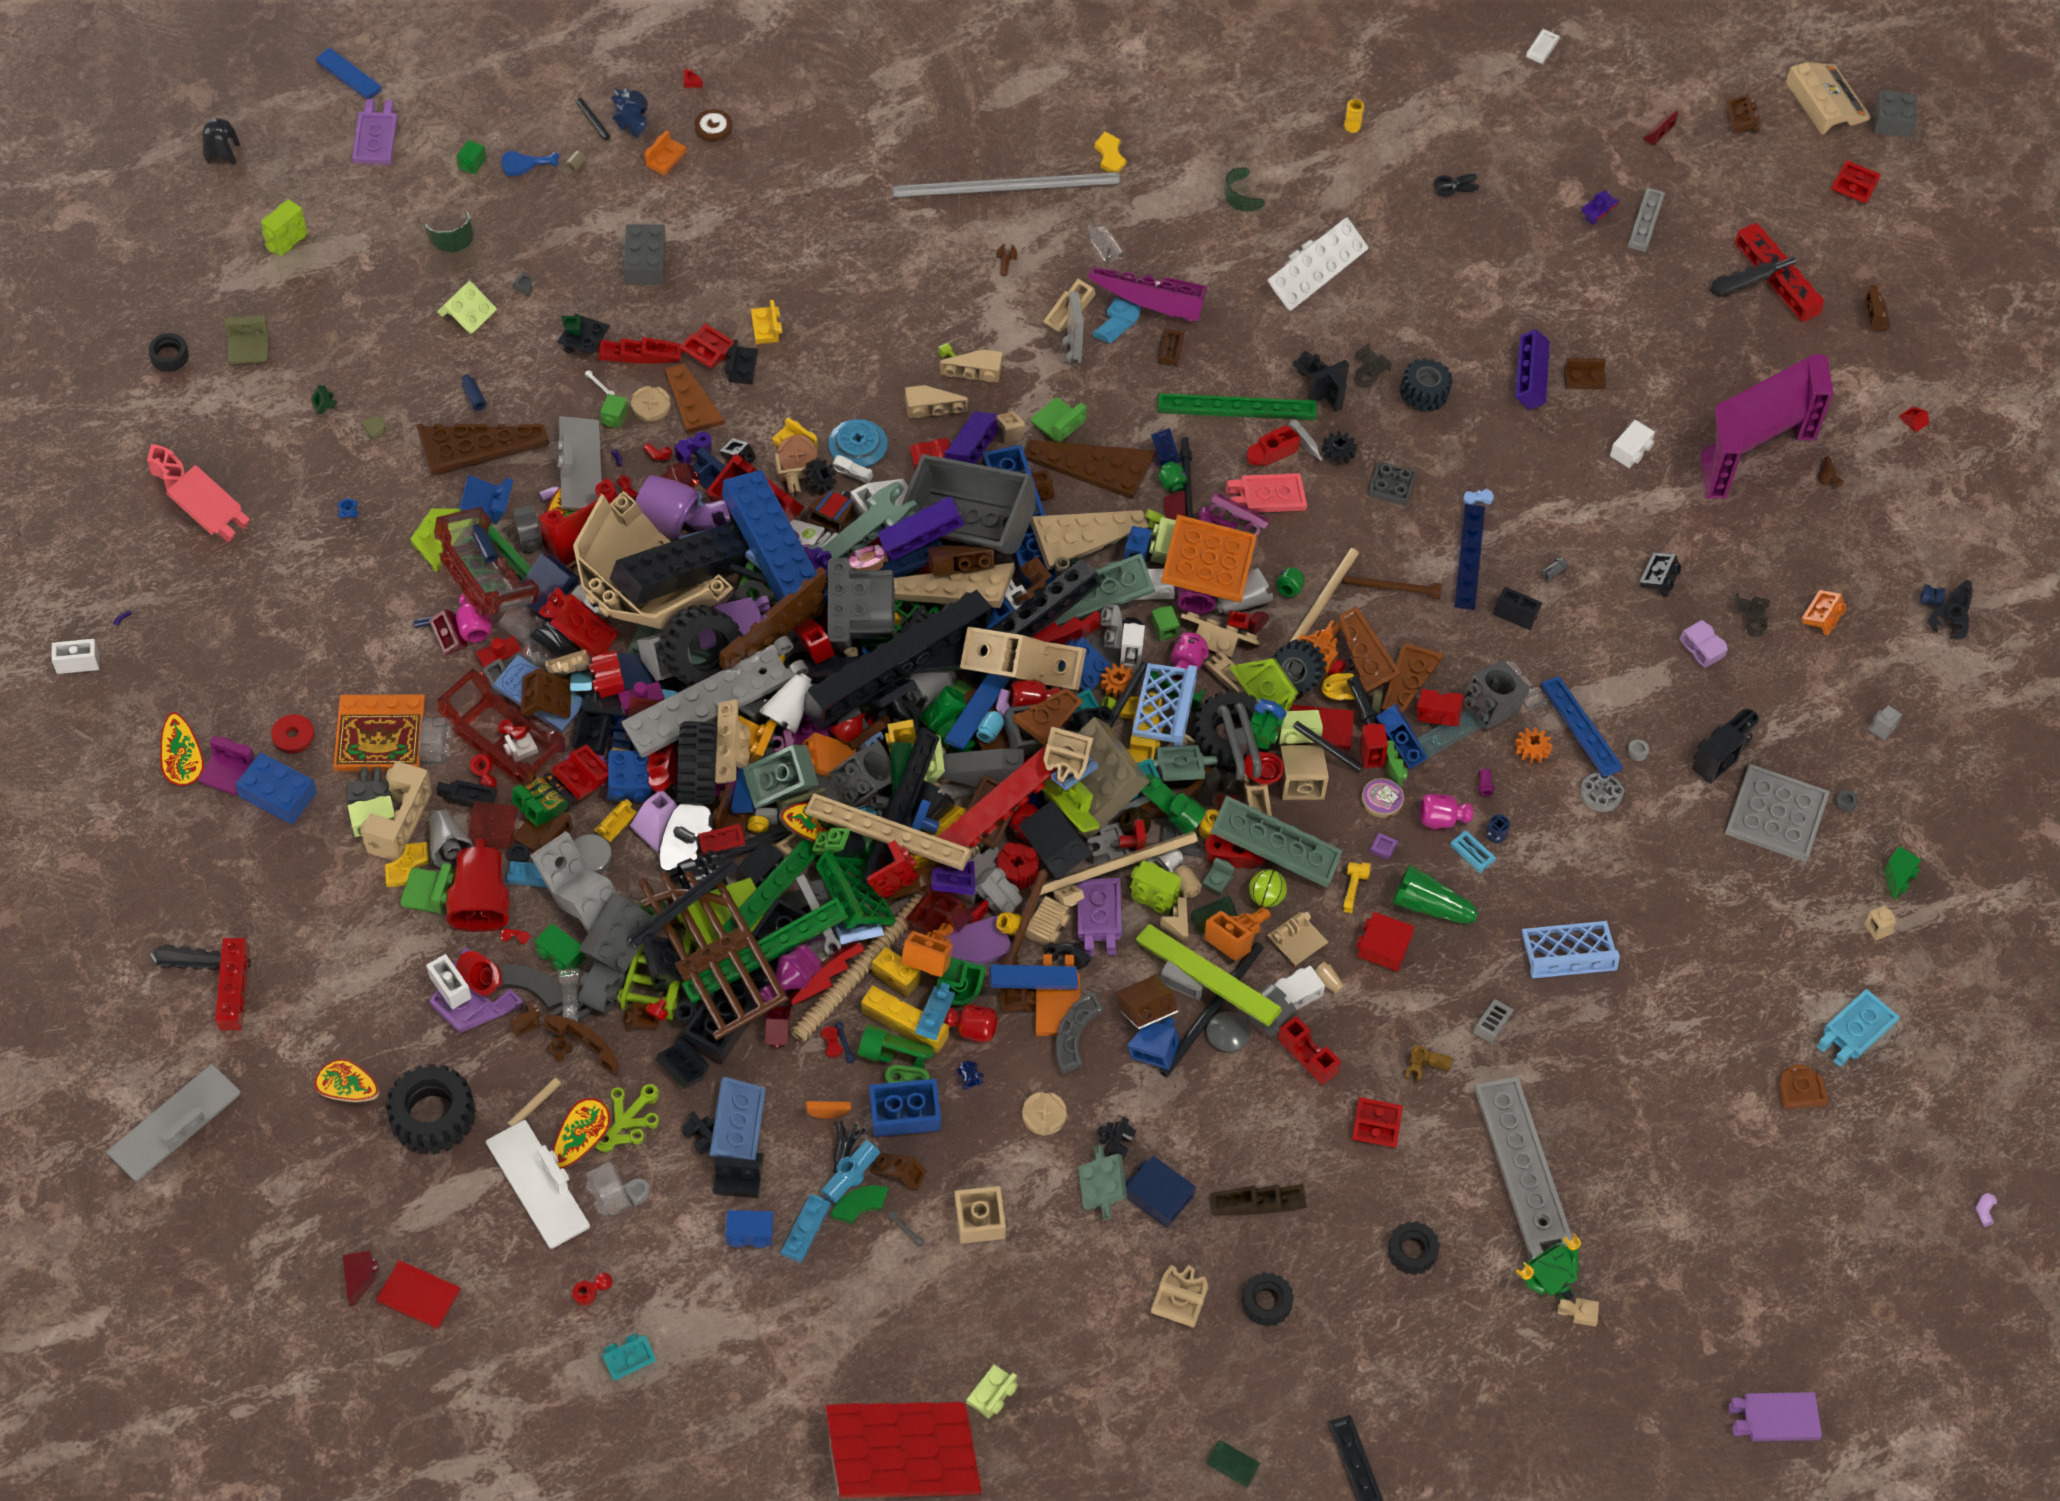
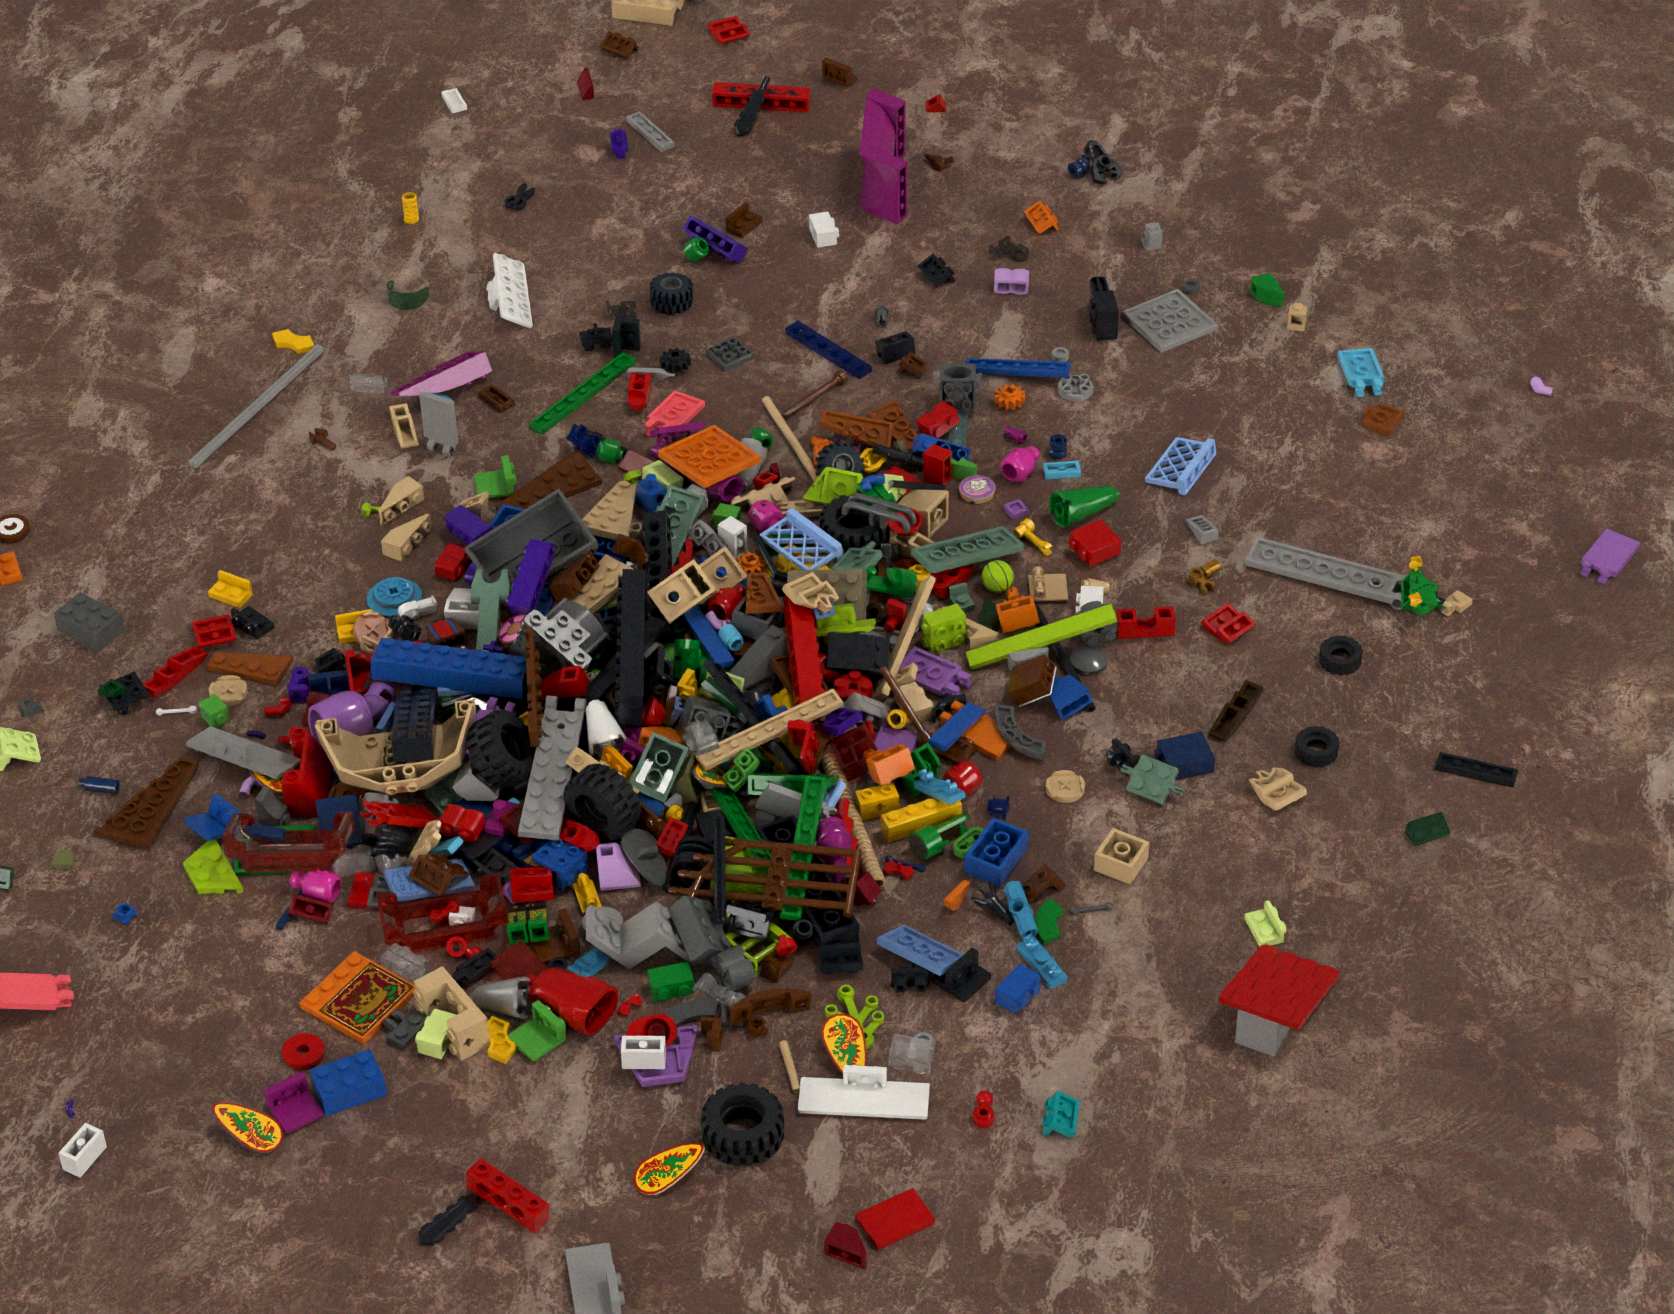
camera: 50 degrees left, 15 degrees down
(828, 786) = (700, 737): none -> clear brick
(1485, 496) = (785, 320): light blue piece -> none
(1504, 363) = (695, 249): none -> green head
(1506, 637) = (912, 364): none -> reddish brown bracket

